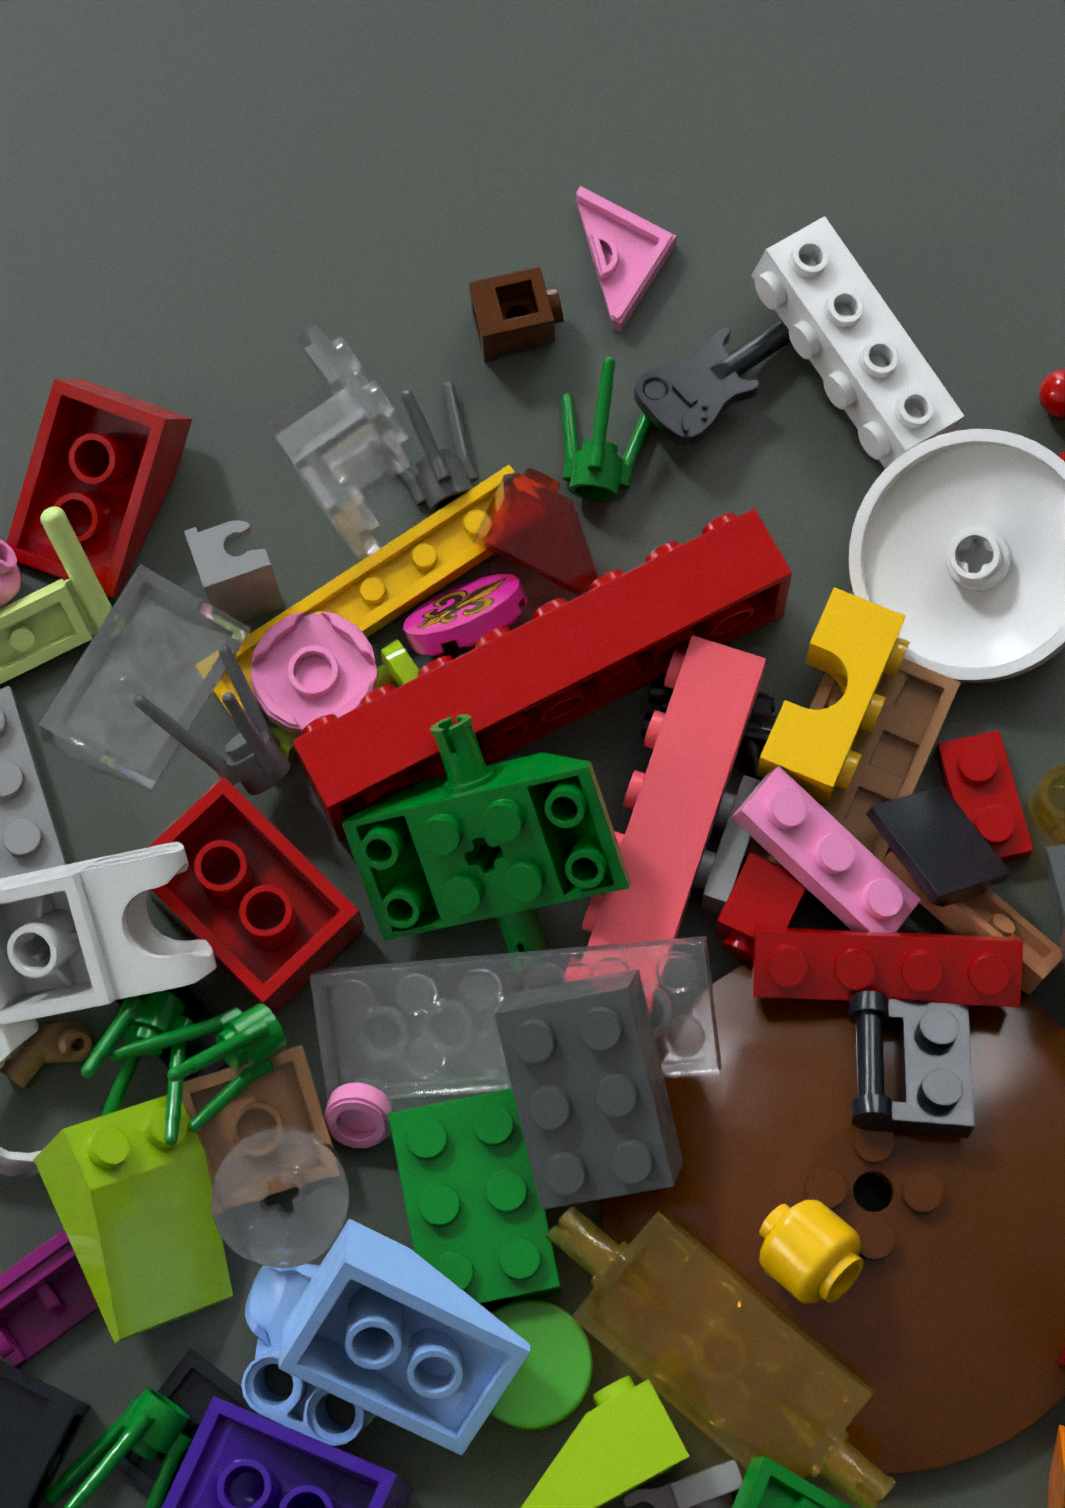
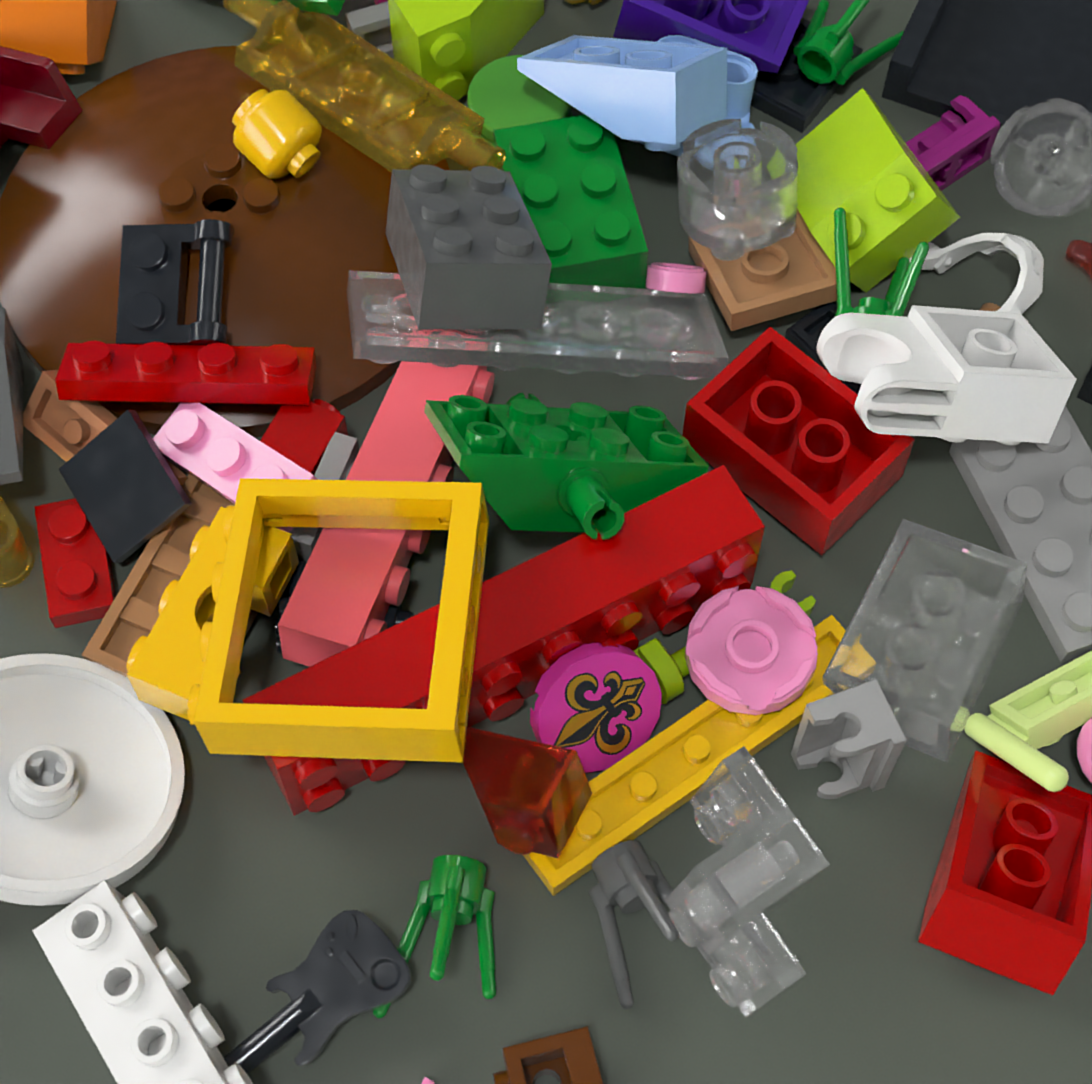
camera: 175 degrees right, 10 degrees down
(245, 1041) = (781, 296): green plant -> none
(252, 753) = (809, 561): dark grey plant -> none
(813, 615) = (338, 731): none -> yellow window

